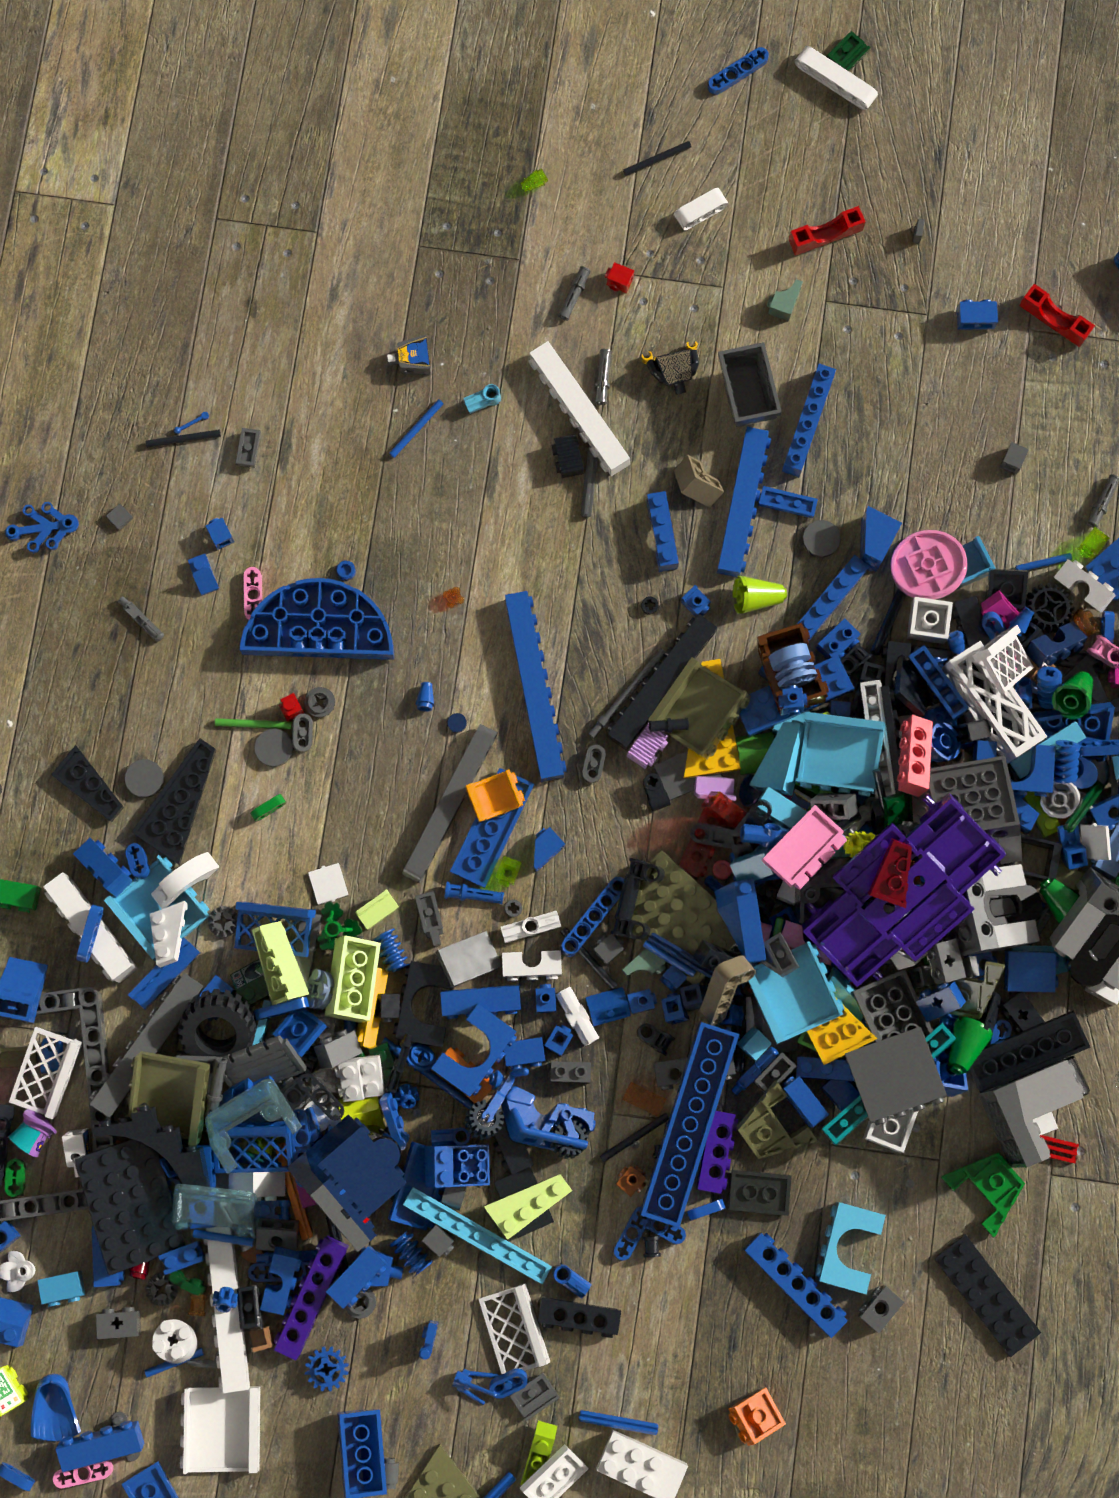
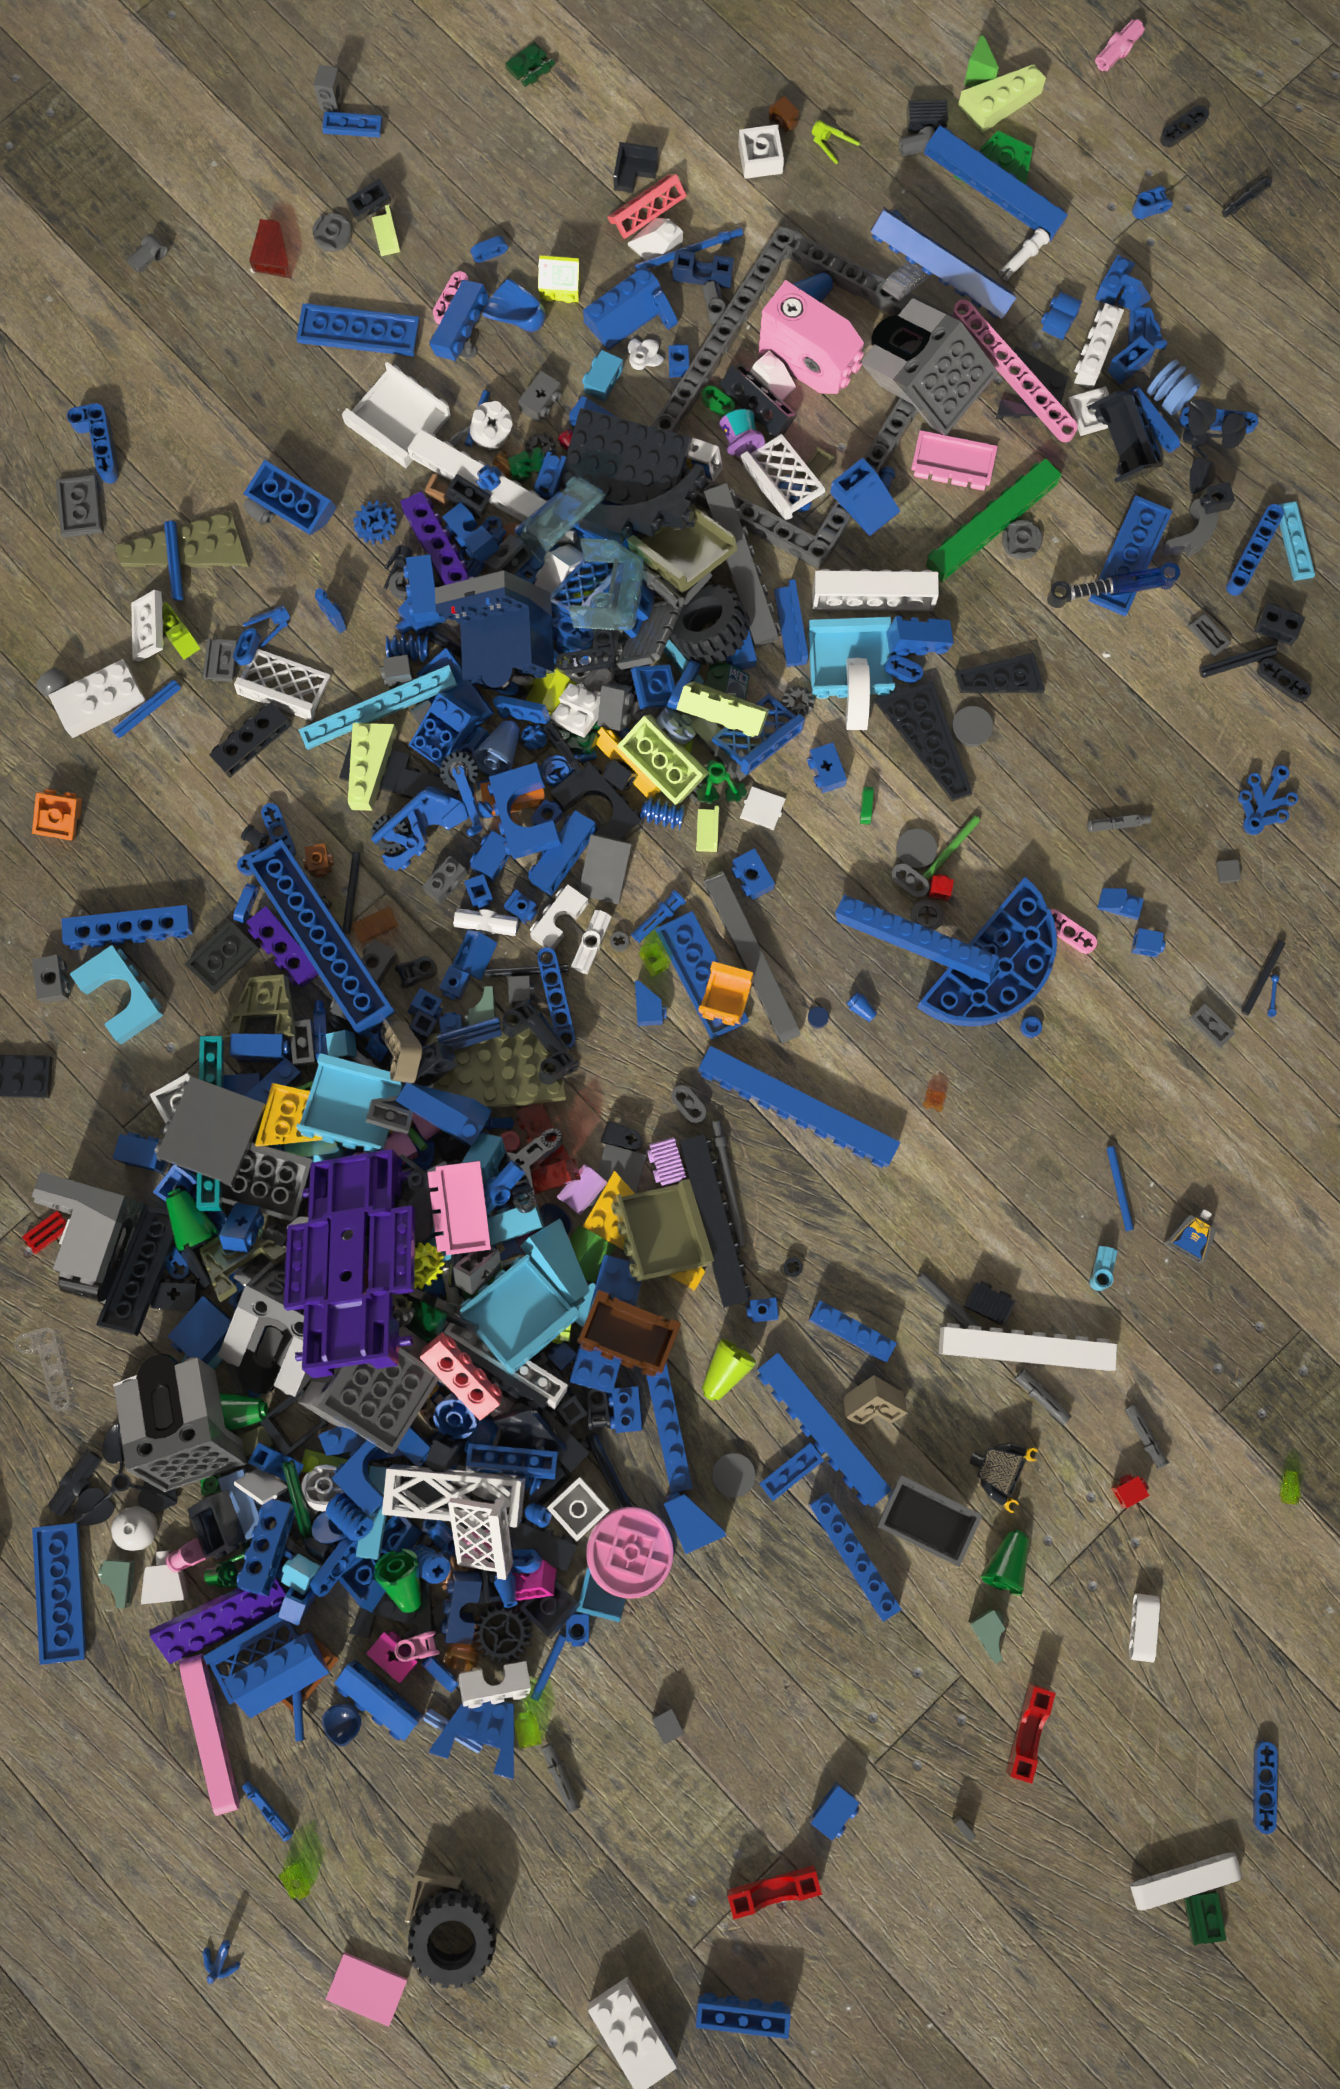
camera: 130 degrees right, 0 degrees up
(89, 933) = (867, 577): blue beam -> none
(166, 933) = (824, 646): white wing -> none
(262, 848) = (828, 757): none -> blue brick
(340, 1321) = (399, 556): none -> black plant
(347, 690) = (917, 939): none -> blue brick
(383, 1229) = (443, 642): none -> black piece
(387, 837) = (752, 863): none -> blue brick
(430, 916) = (667, 867): dark grey hinge -> none
(438, 1113) = (498, 749): none -> medium blue cone
(469, 1040) = (546, 806): none -> blue brick
(573, 1281) = (281, 754): blue piece -> none
(657, 158) = (1229, 1627): black bar -> none
(668, 725) = (669, 1191): black pin -> none
(731, 319) = (1008, 1564): none -> green cone
(789, 706) = (595, 1309): blue brick -> none
(793, 666) = (629, 1334): medium blue wheel -> none
(892, 876) = (368, 1254): dark red wing -> none
(946, 961) = (265, 1254): dark grey brick -> none
(947, 1123) = (139, 1152): none -> blue brick
(995, 1181) = (66, 1156): green wing -> none
(1008, 554) = (584, 1620): none -> blue brick

